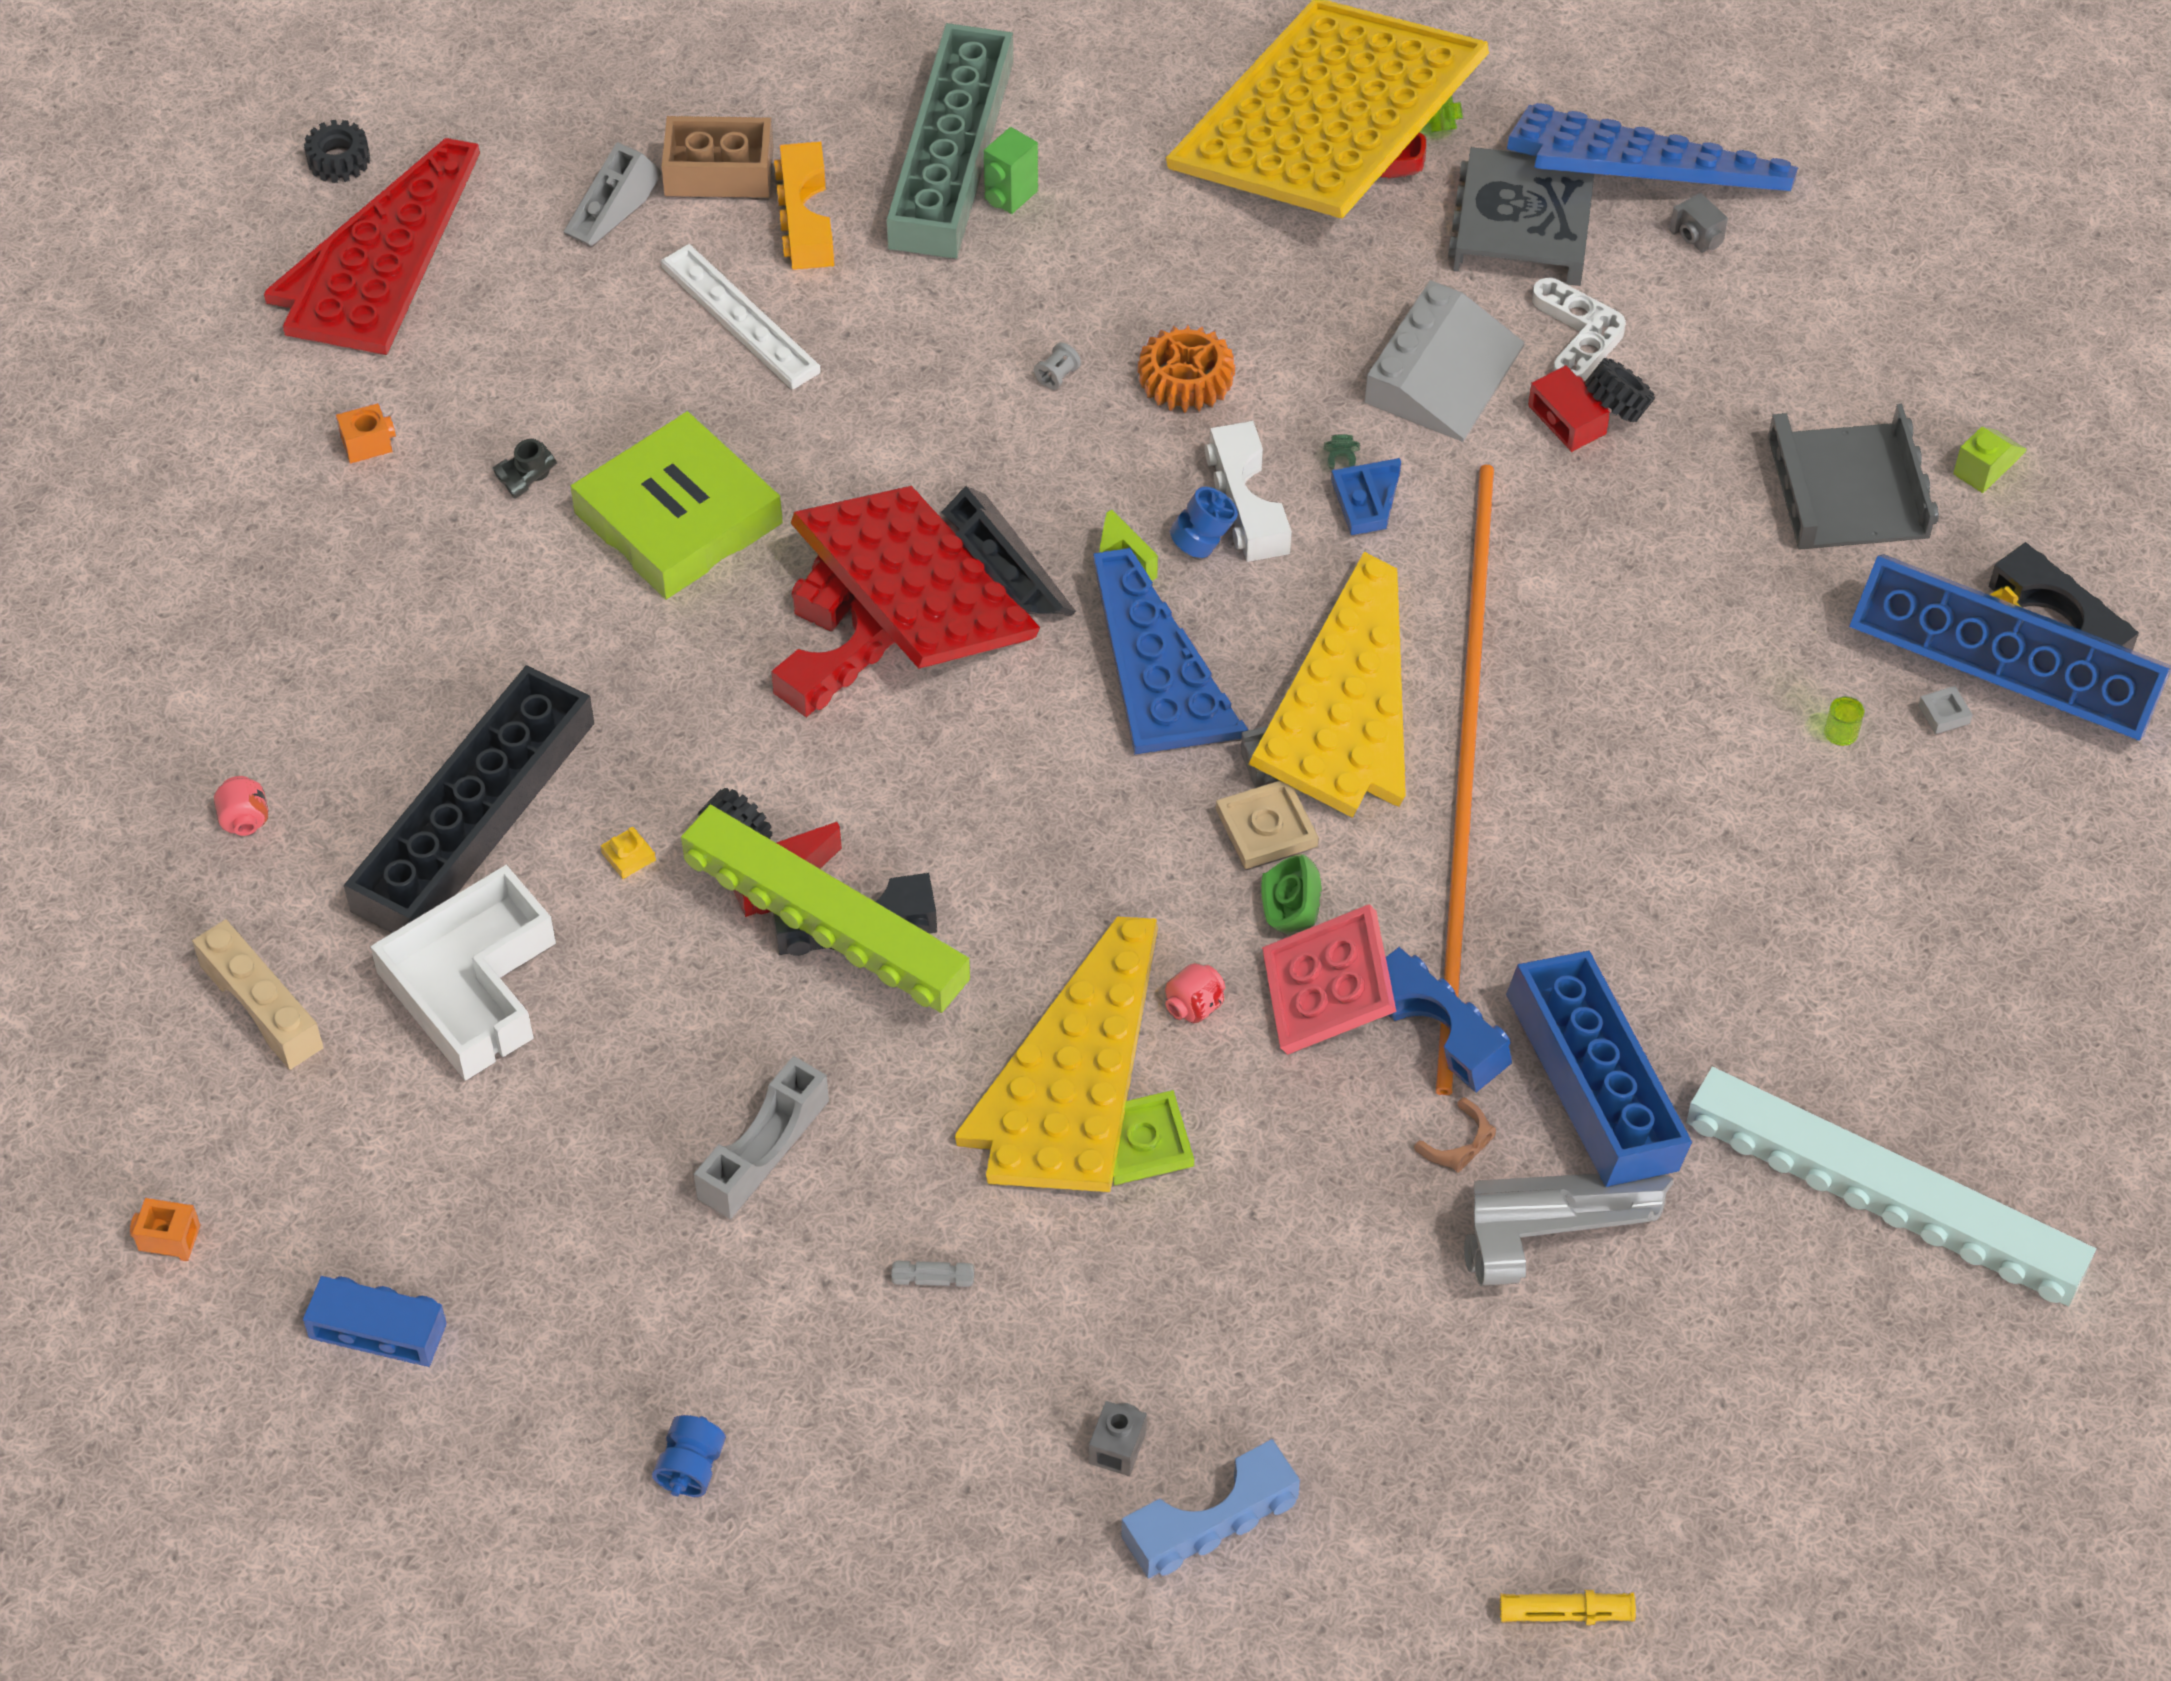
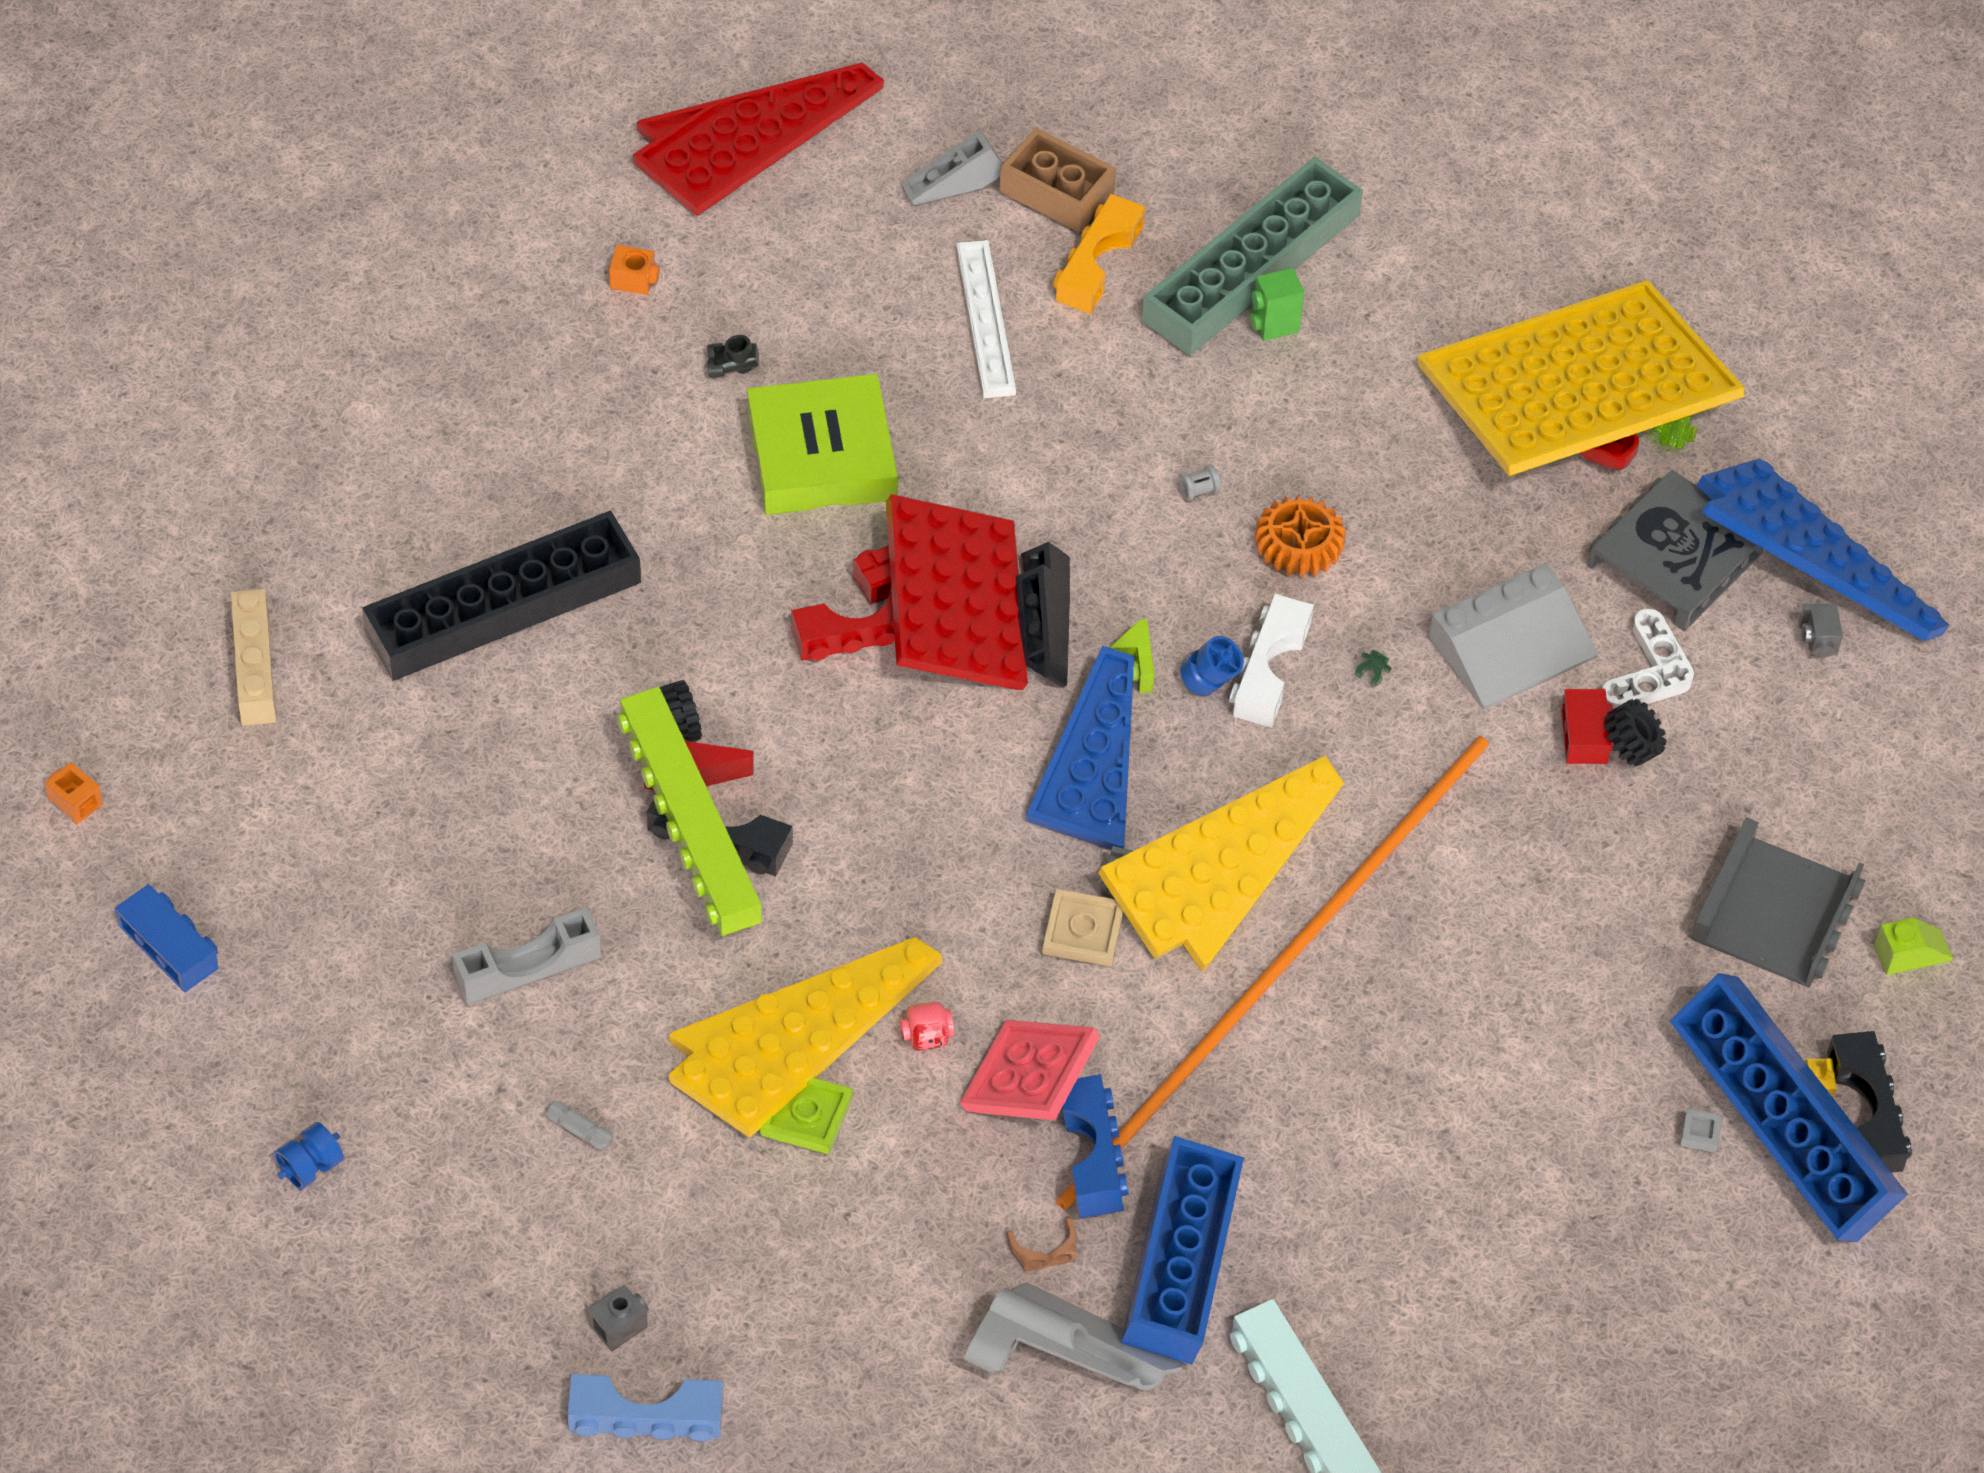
camera: 30 degrees right, 0 degrees up
(241, 804) = (342, 510): coral head -> none
(341, 164) = (774, 46): black tyre -> none
(452, 964) = (402, 704): white piece -> none
(628, 852) = (593, 693): yellow tile -> none
(1292, 894) = (1057, 992): bright green piece -> none
(1367, 494) = (1368, 712): blue wing -> none
(1844, 721) = (1609, 1083): clear neon green beam -> none

